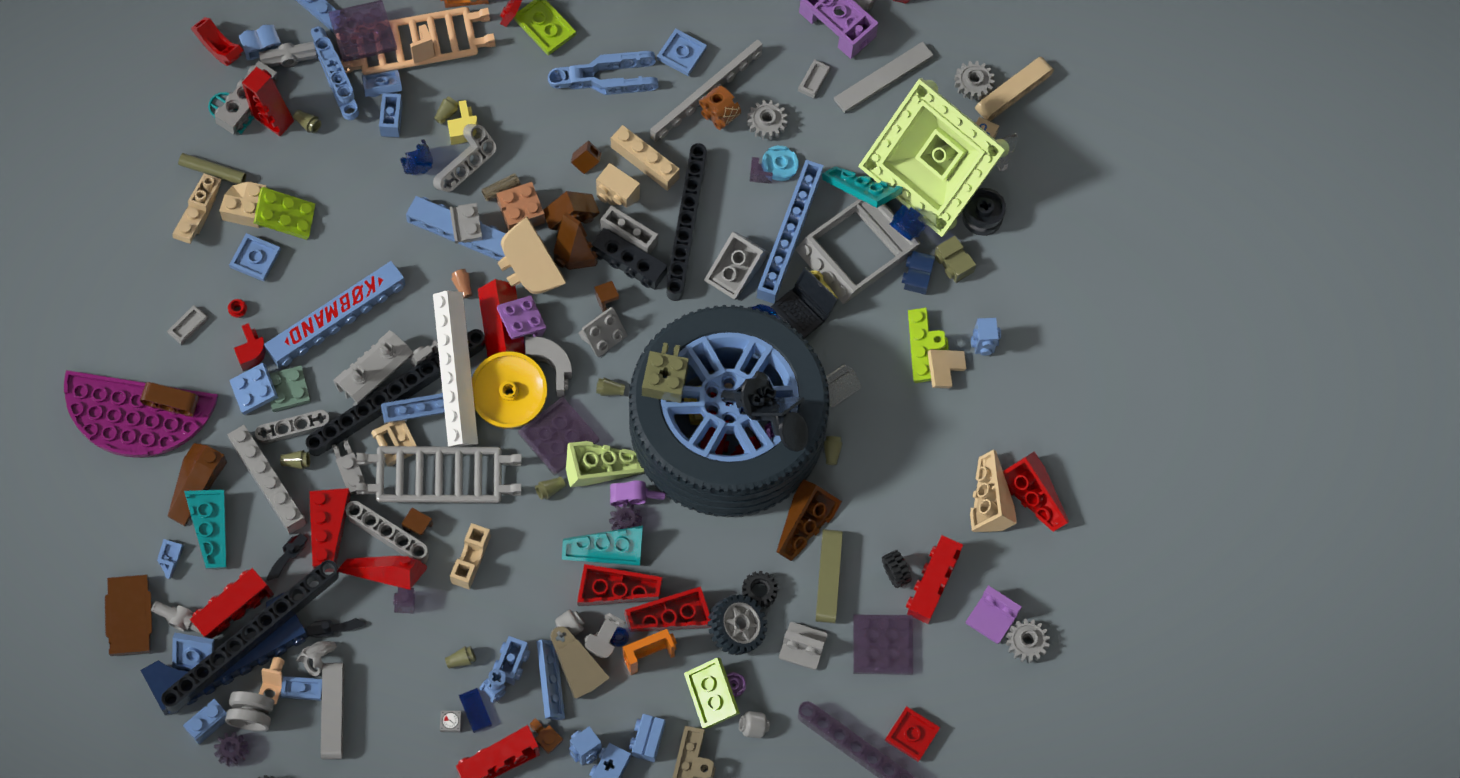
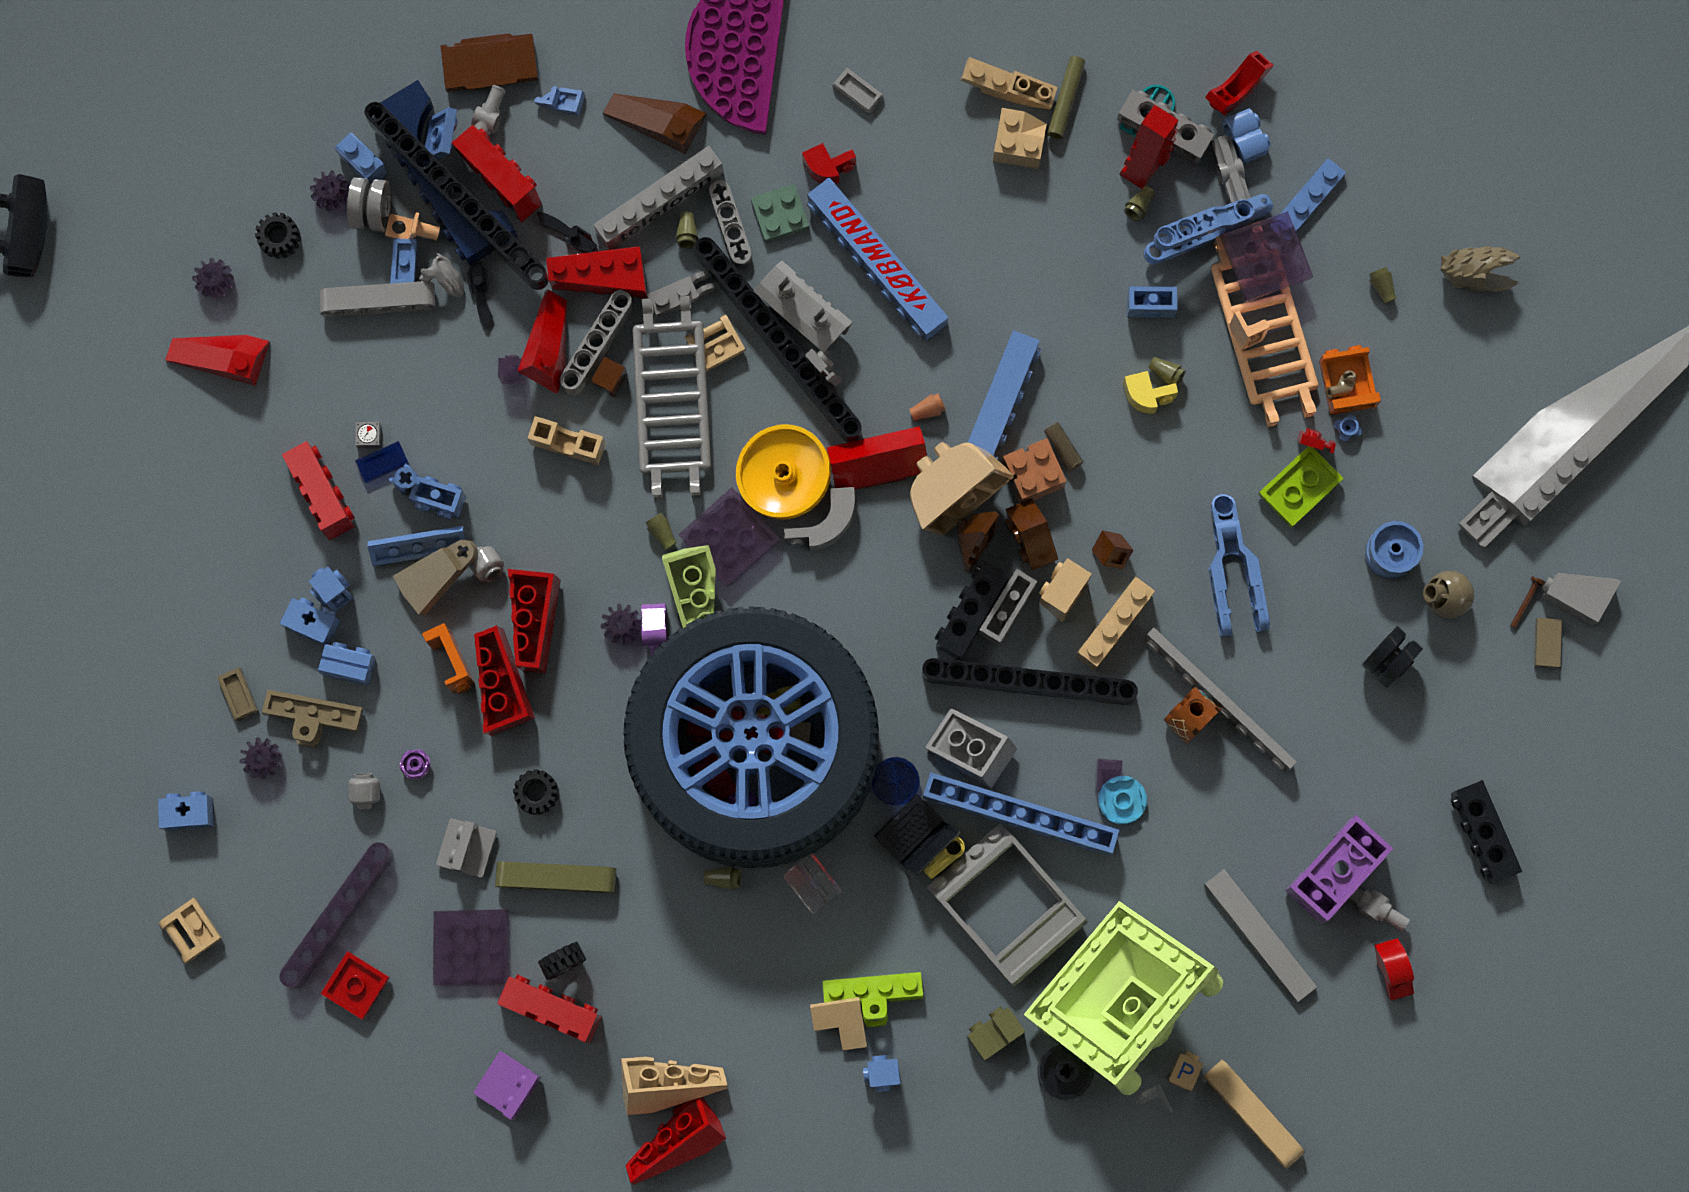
camera: 95 degrees right, 10 degrees up
(169, 399) = (752, 76): reddish brown beam -> none
(208, 517) = (598, 139): teal wing -> none
(237, 303) = (881, 138): red plate -> none
(253, 388) = (775, 173): medium blue plate -> none
(255, 257) = (949, 158): medium blue plate -> none
(284, 213) = (1006, 185): lime plate -> none
(381, 83) = (1196, 287): medium blue plate -> none
(413, 408) = (757, 368): medium blue plate -> none
(418, 161) = (1093, 341): clear blue hair -> none
(455, 369) = (801, 402): white brick -> none
(462, 161) = (1092, 394): light grey beam -> none
(462, 657) = (444, 442): olive cone -> none
(466, 223) = (1002, 403): light grey plate -> none
(522, 318) = (876, 479): medium lavender bracket -> none
(546, 738) = (349, 547): dark orange plate -> none
(598, 643) = (459, 598): light grey piece -> none
(603, 332) = (868, 583): light grey bracket -> none
(606, 293) = (917, 584): reddish brown panel -> none
(608, 387) = (796, 595): olive cone -> none
(612, 547) = (584, 605): teal wing -> none
(620, 631) = (469, 618): clear blue plate -> none
(665, 365) = (776, 658): olive hinge -> none
(681, 52) = (1275, 665): medium blue plate -> none
(711, 693) = (400, 737): plate -> none
(750, 622) = (489, 747): wheel -> none
(760, 404) = (731, 769): black piece -> none
(767, 111) = (1191, 771): light grey gear -> none
(807, 514) = (637, 848): reddish brown wedge -> none
(814, 78) = (1251, 842): light grey tile -> none
(862, 186) = (1086, 906): teal wing -> none
(908, 222) = (1037, 967): clear blue hair -> none
(919, 272) = (974, 985): dark blue brick -> none
(972, 89) = (1275, 1054): light grey gear -> none
(1031, 631) = (462, 1128): light grey gear -> none

